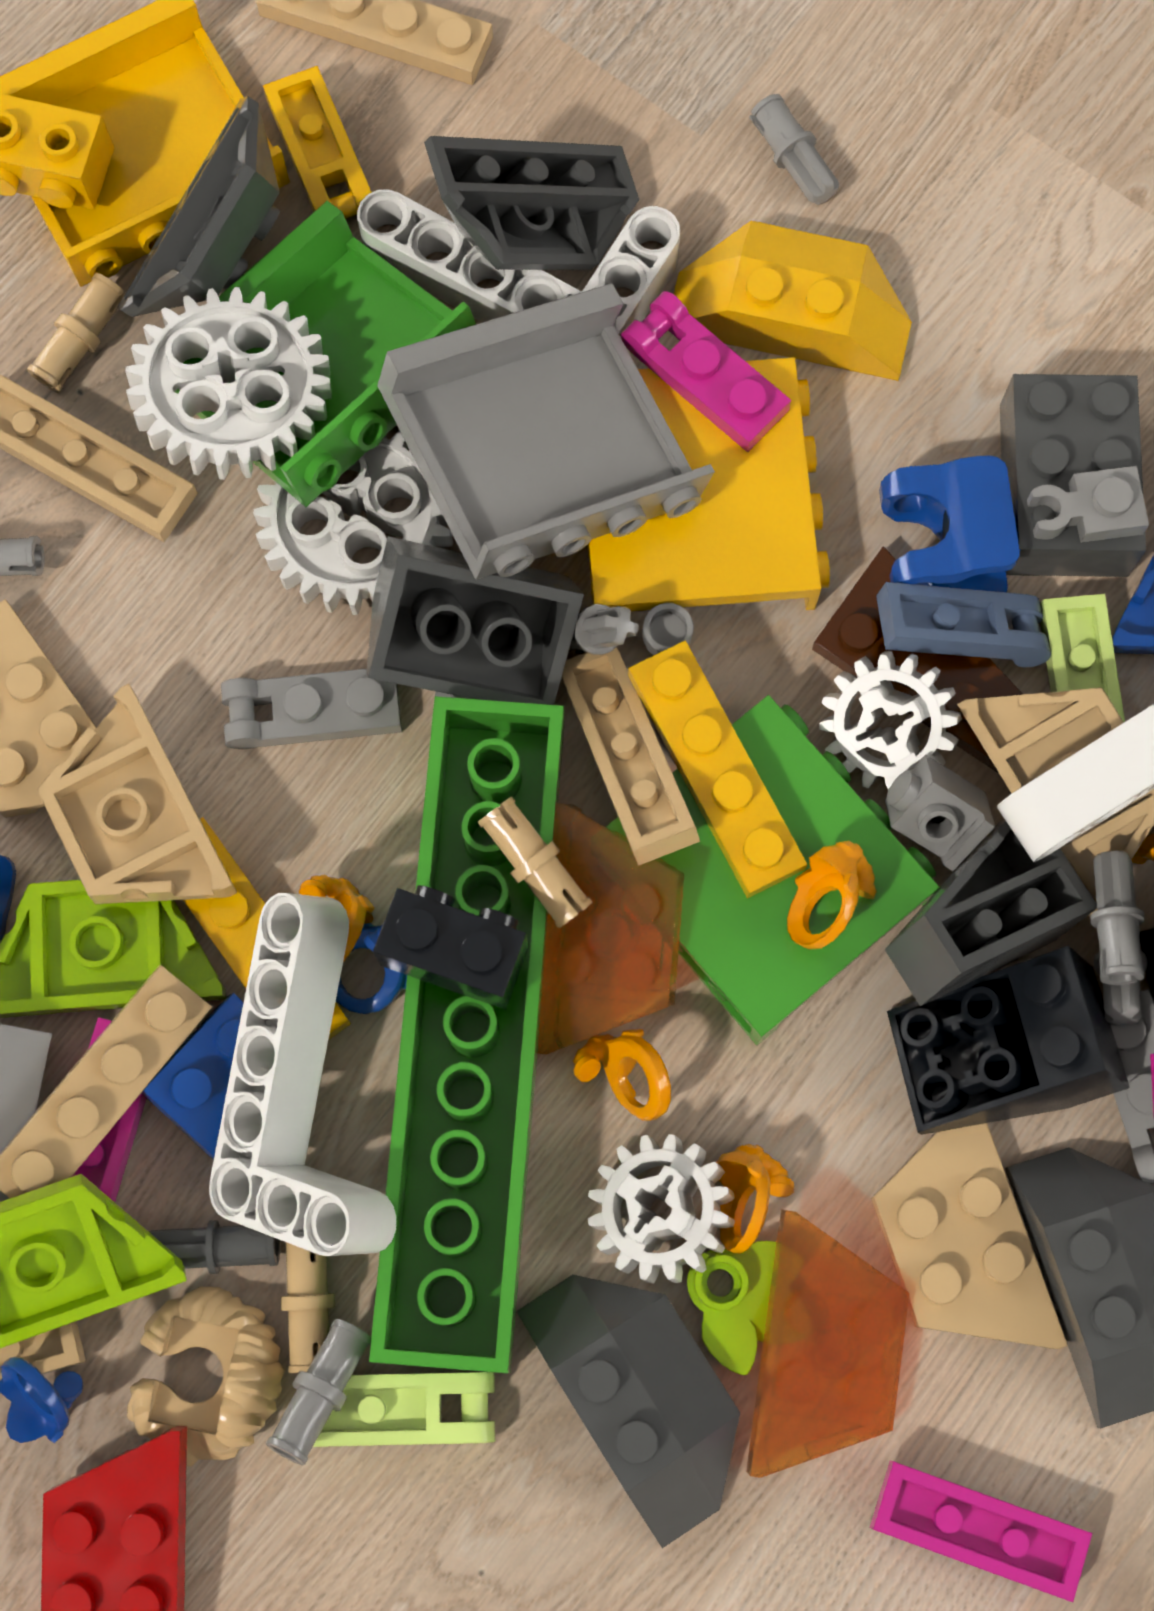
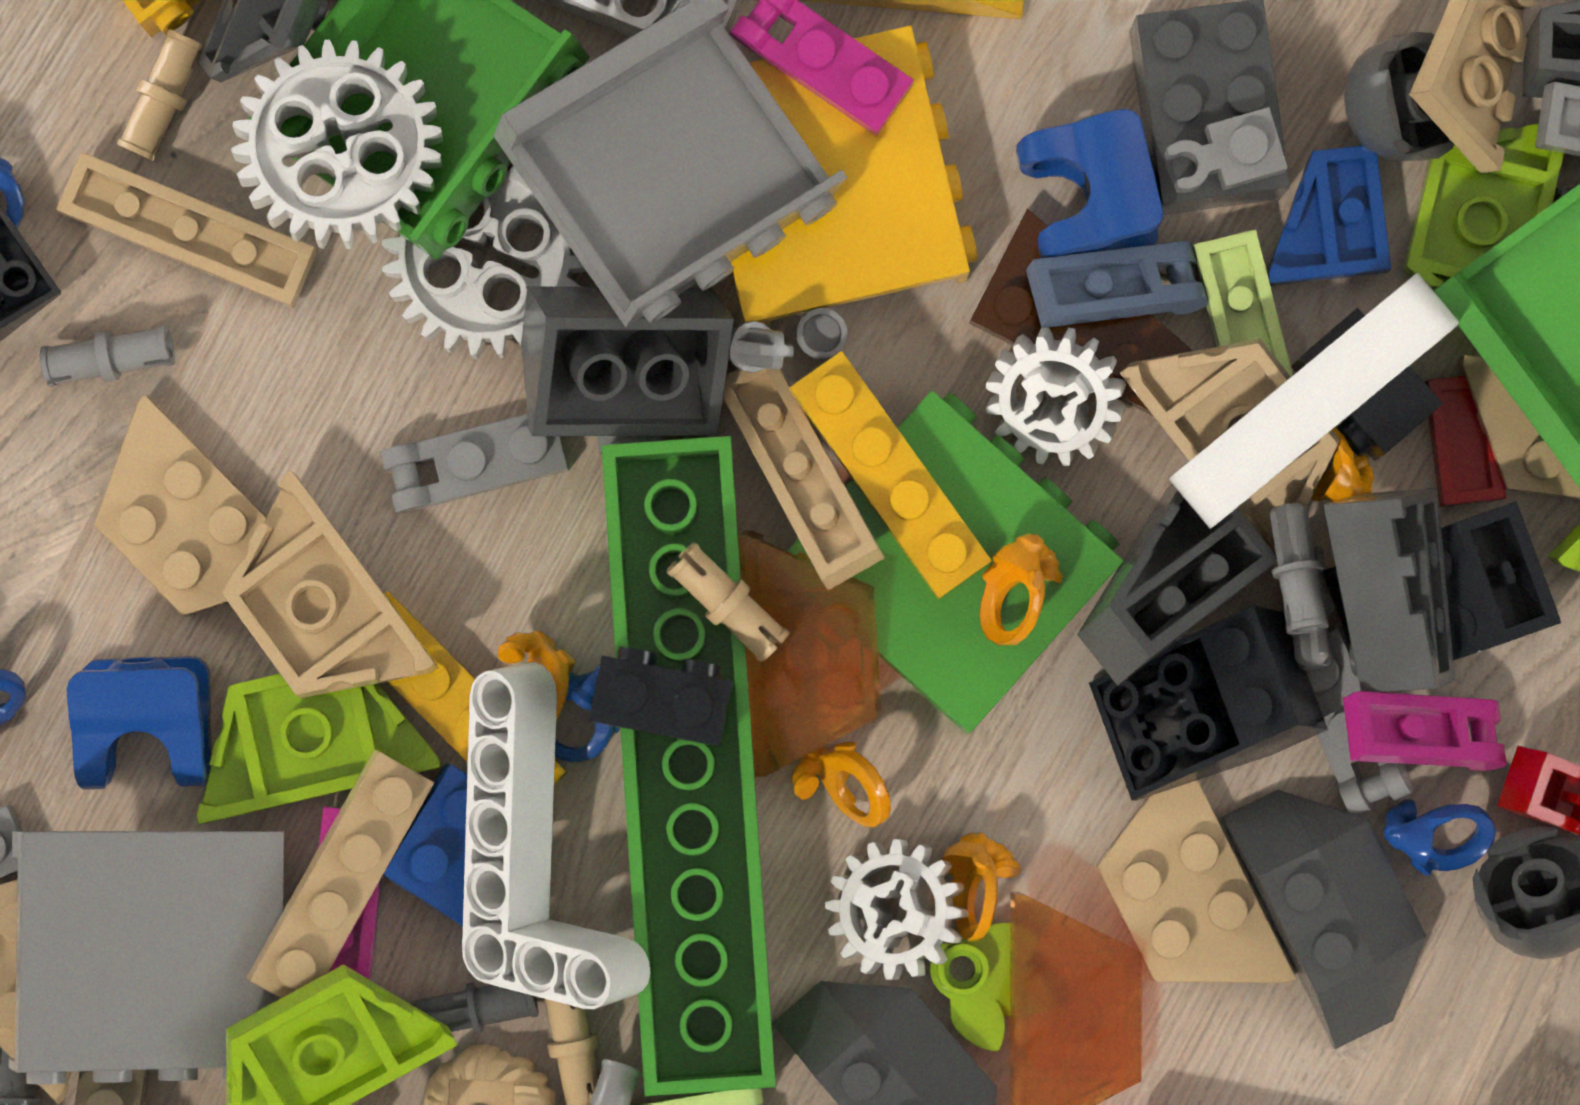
camera: 10 degrees left, 10 degrees up
(939, 811) = (1115, 482): light grey brick -> none

